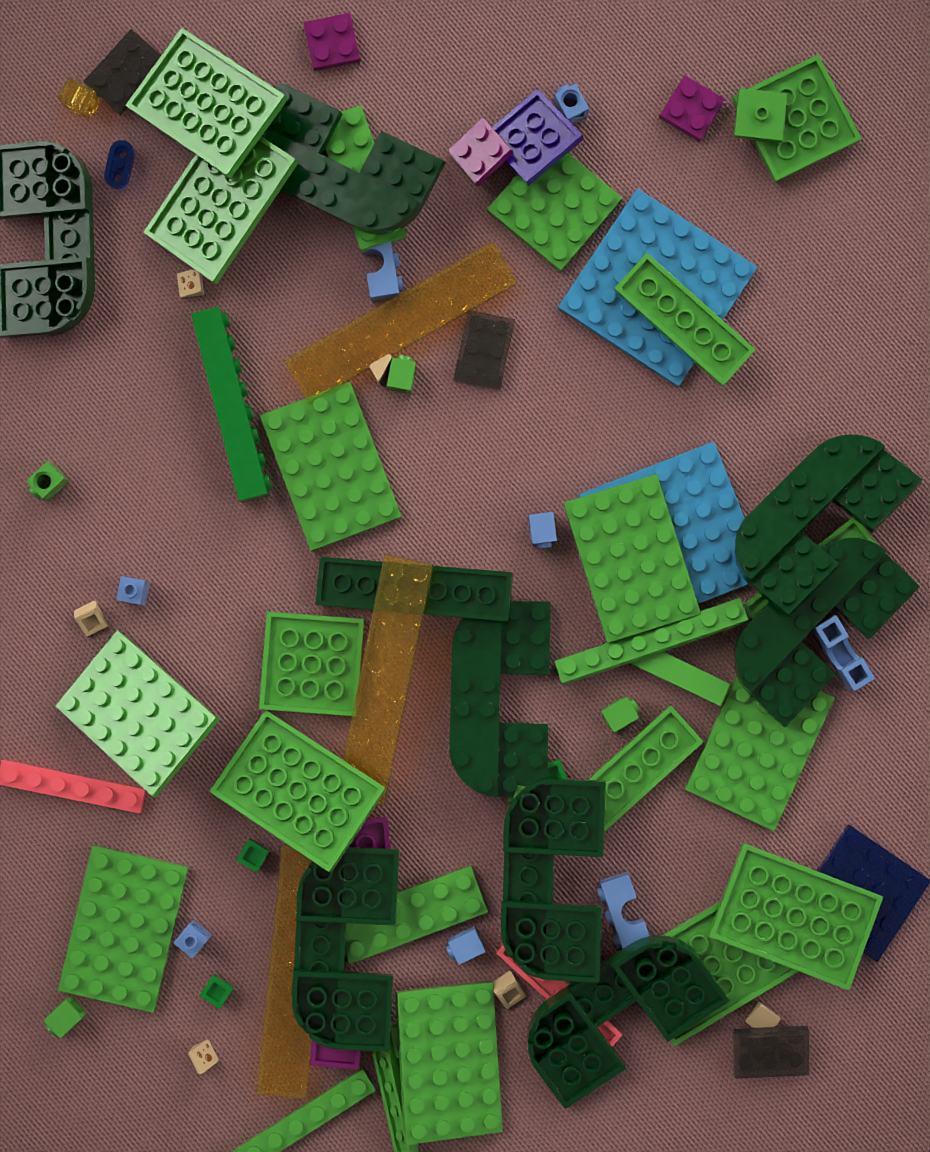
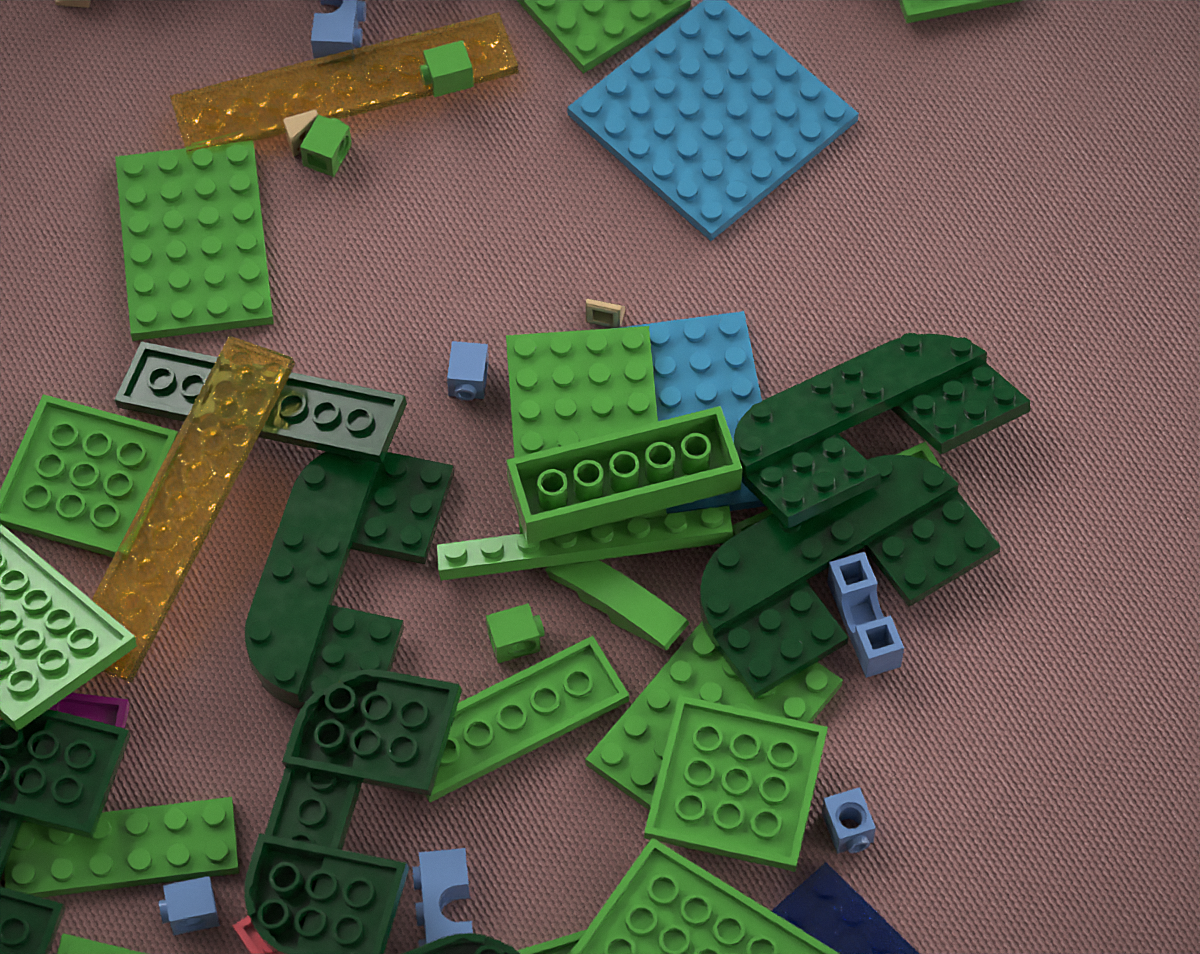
camera: 15 degrees right, 25 degrees down
(230, 404) = (80, 137): green brick -> none
(471, 301) = (447, 69): none -> bright green brick
(484, 350) = (450, 142): clear smoke plate -> none
(621, 460) = (604, 313): none -> tan slope
(672, 601) = (624, 474): none -> bright green brick
(684, 319) = (737, 148): bright green plate -> none
(787, 791) = (736, 783): none -> bright green plate
(850, 790) = (848, 806): none -> medium blue brick

